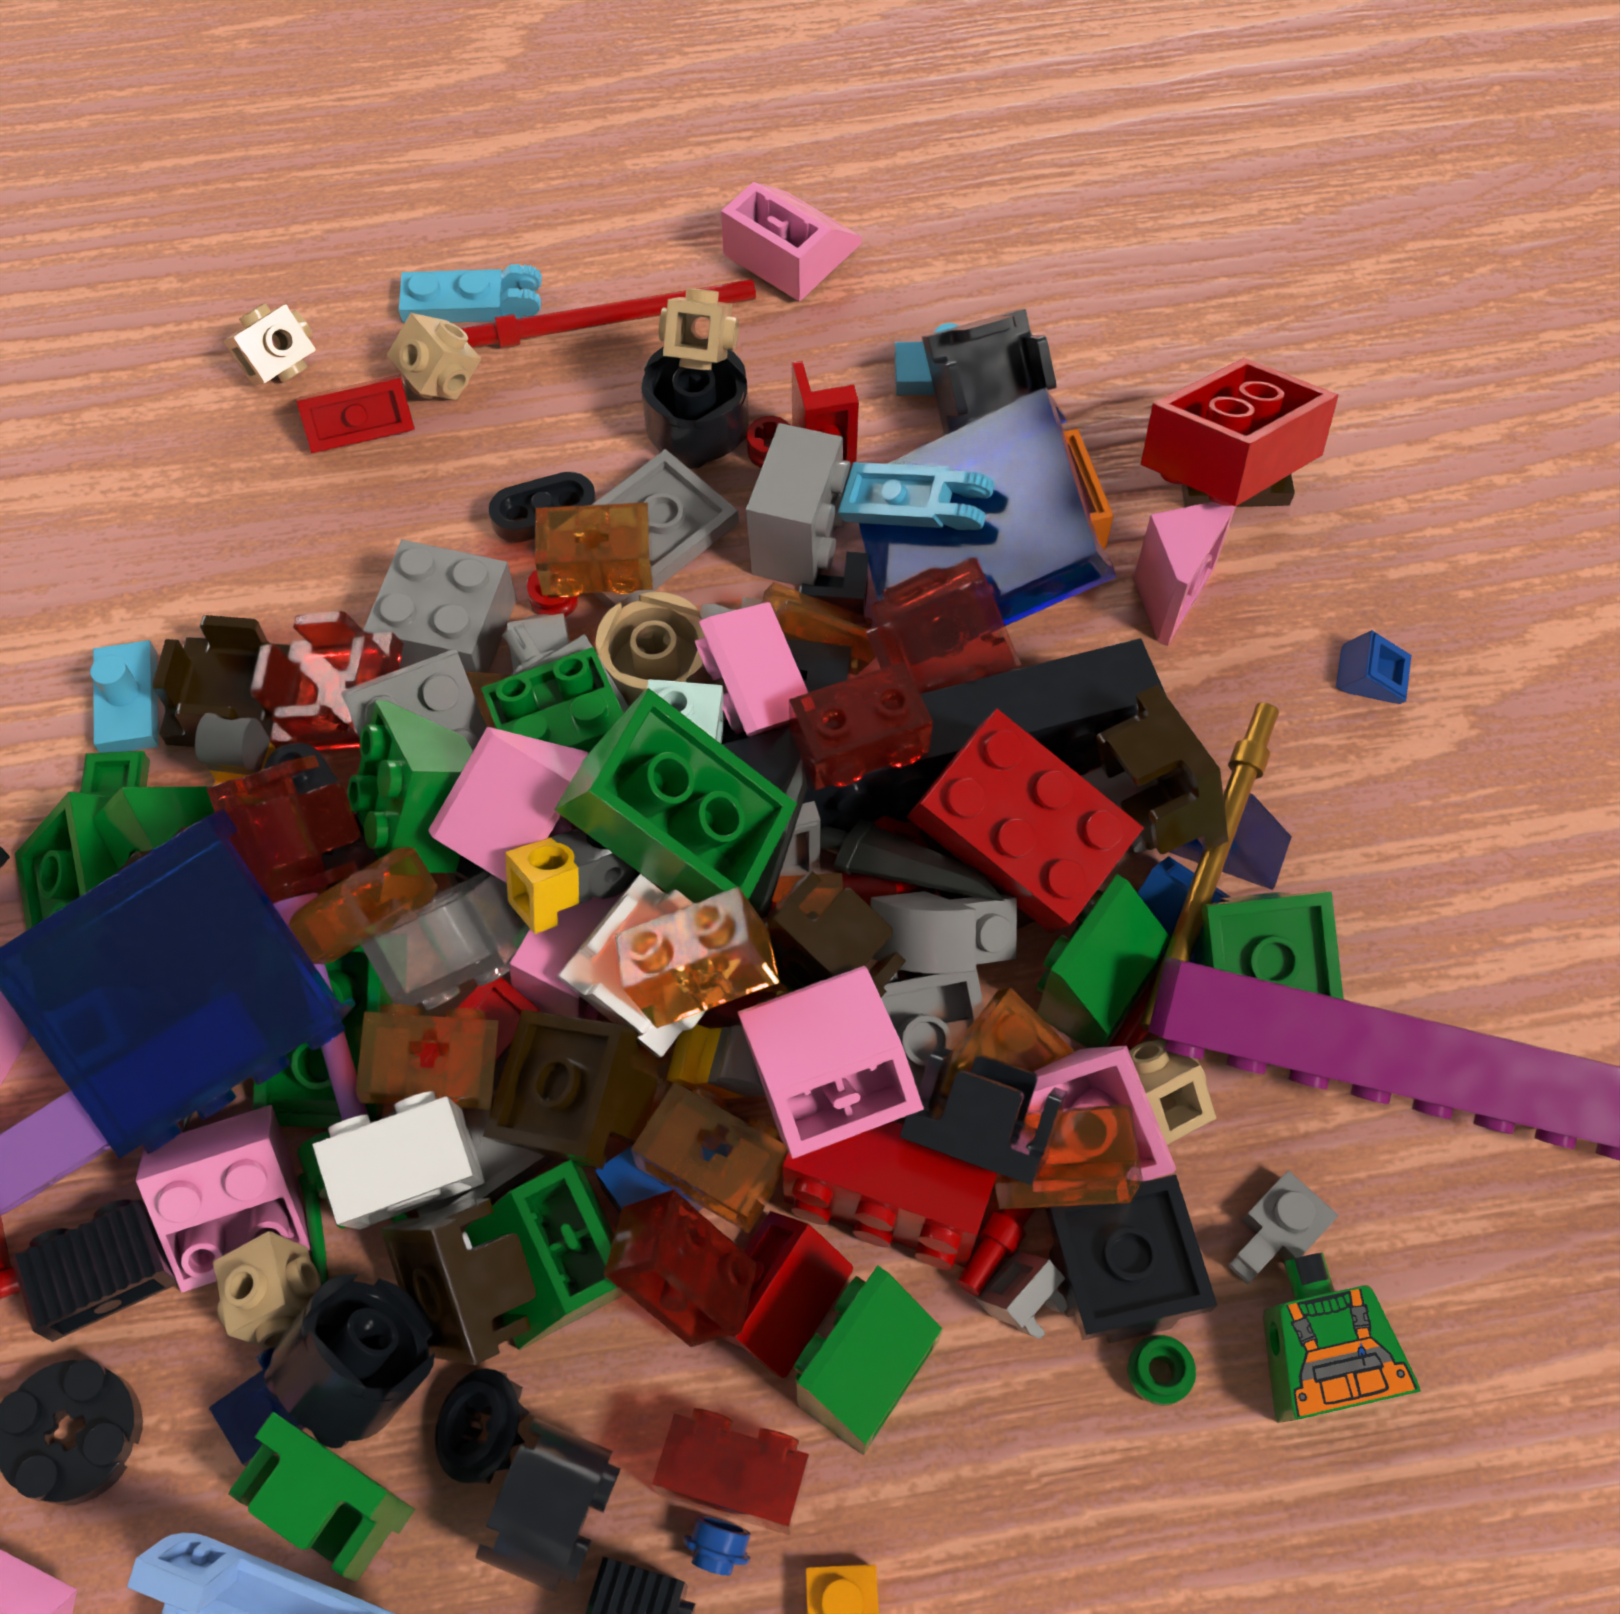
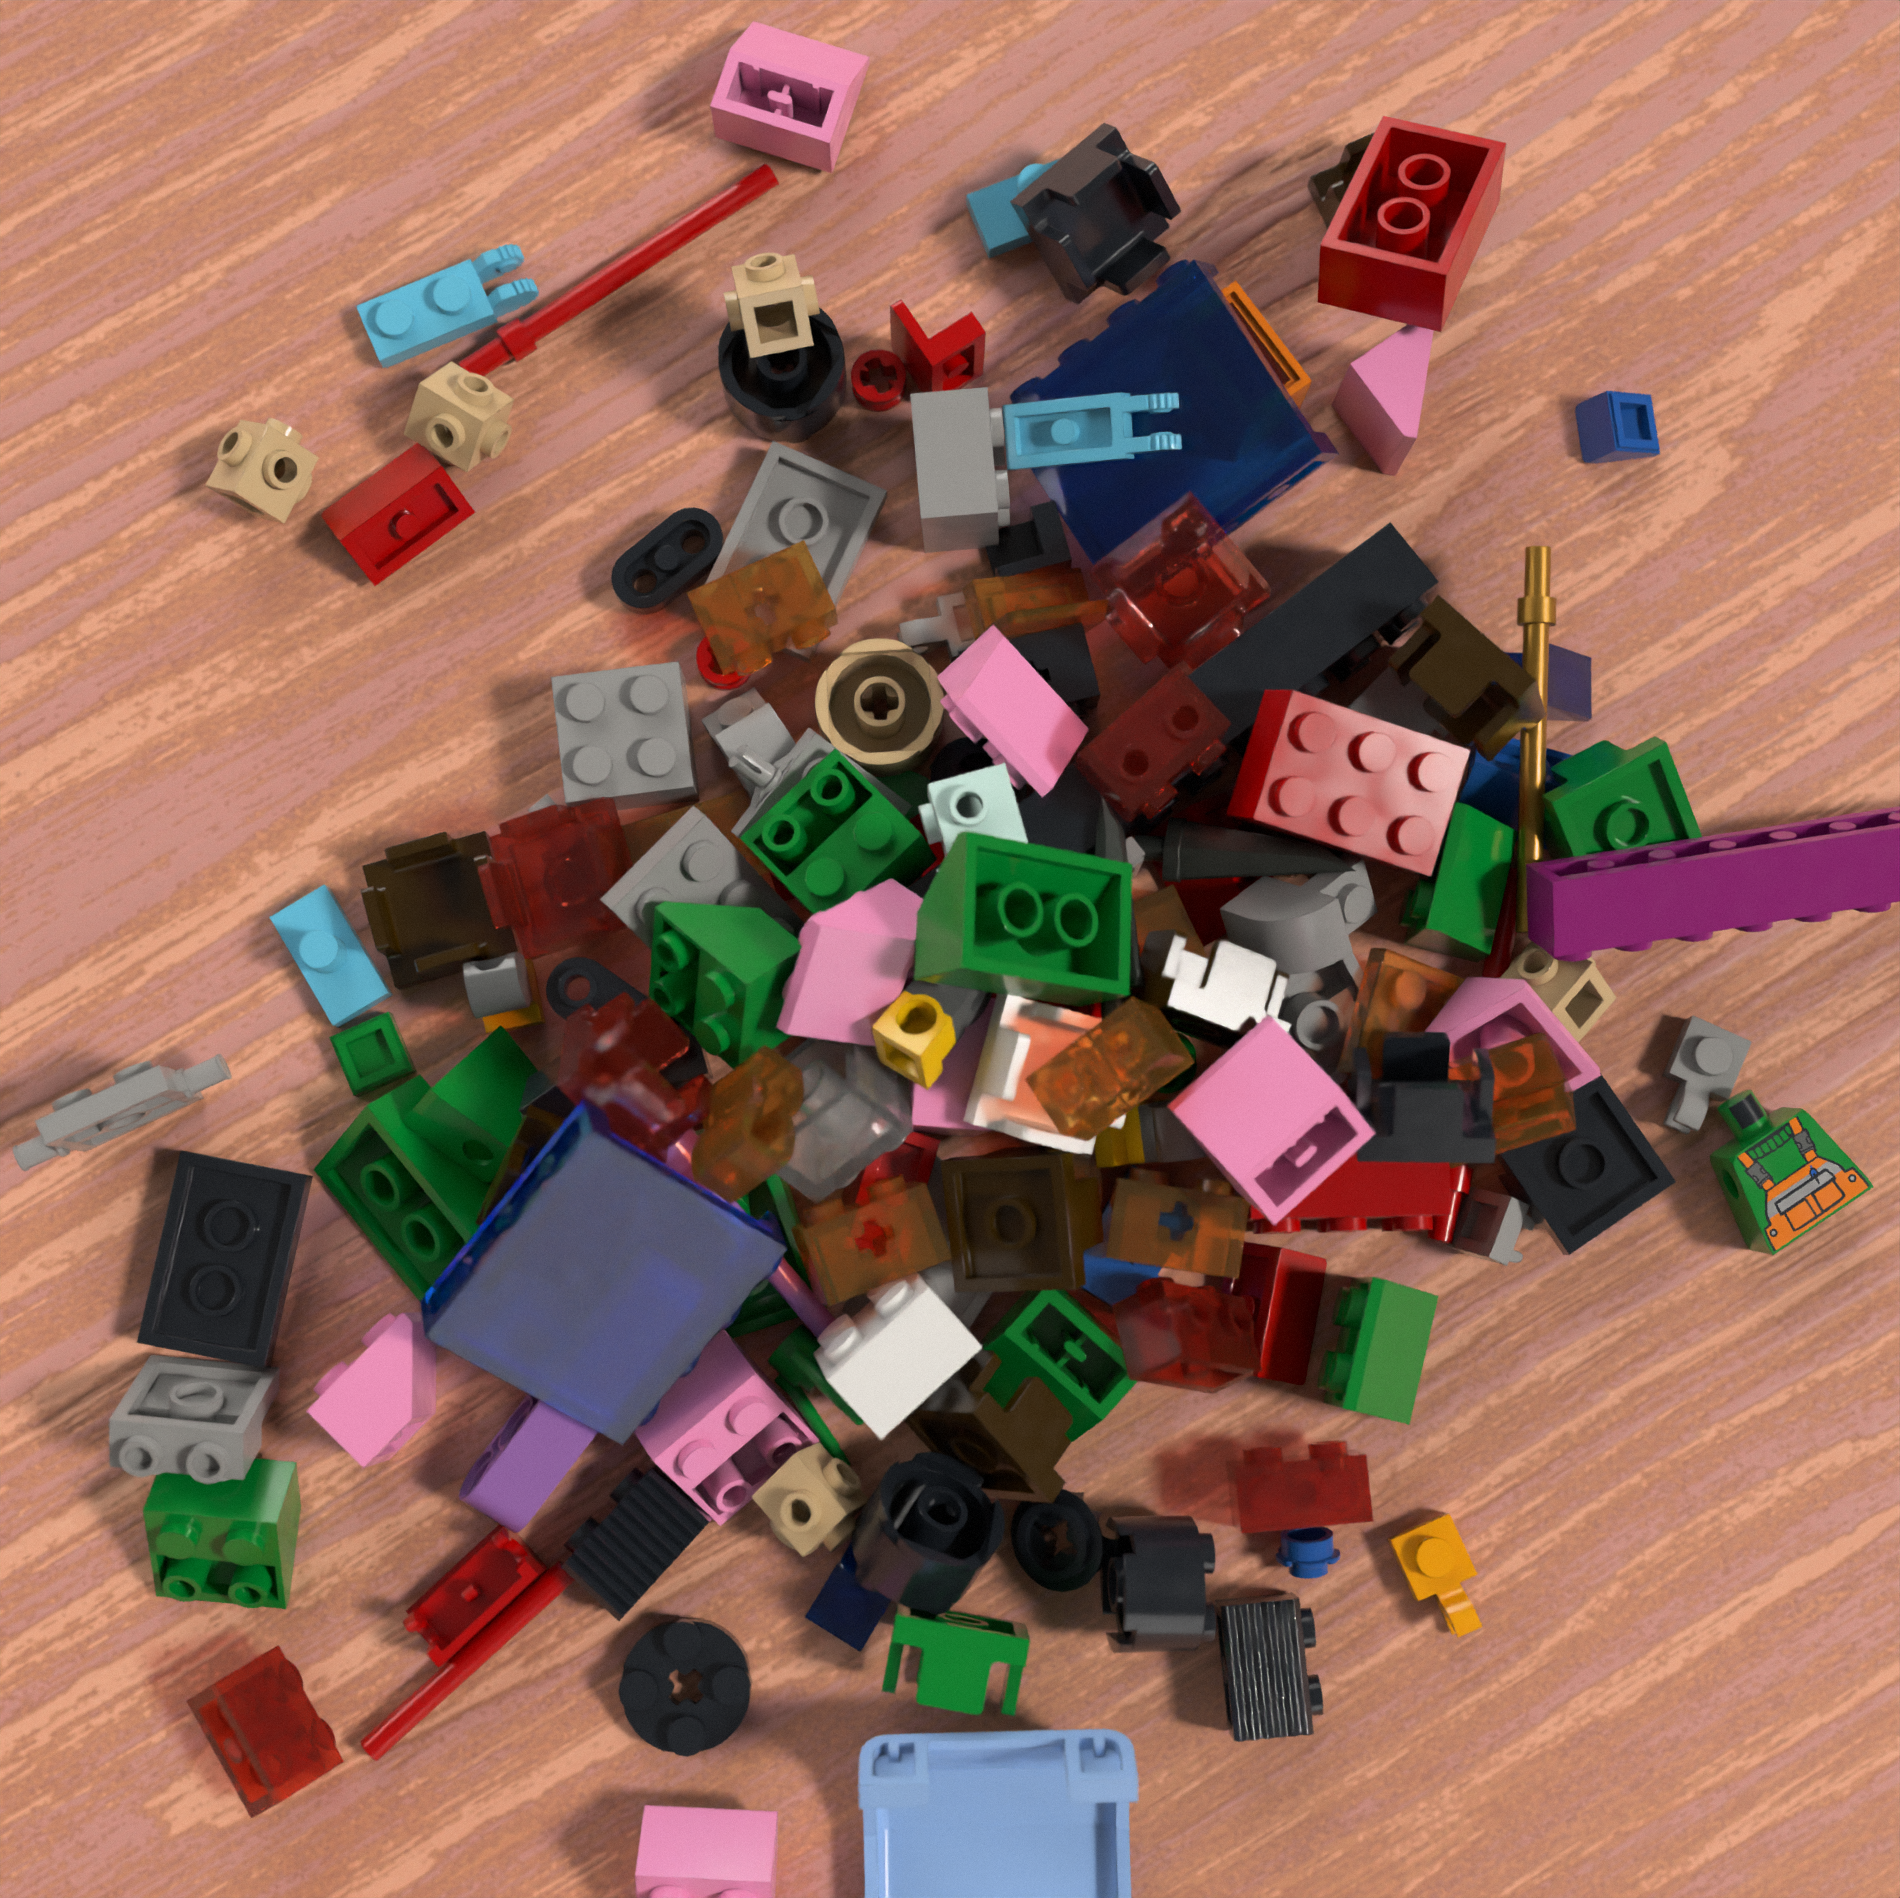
camera: 25 degrees left, 20 degrees up
(1178, 1359) = (1655, 1243): green plate -> none

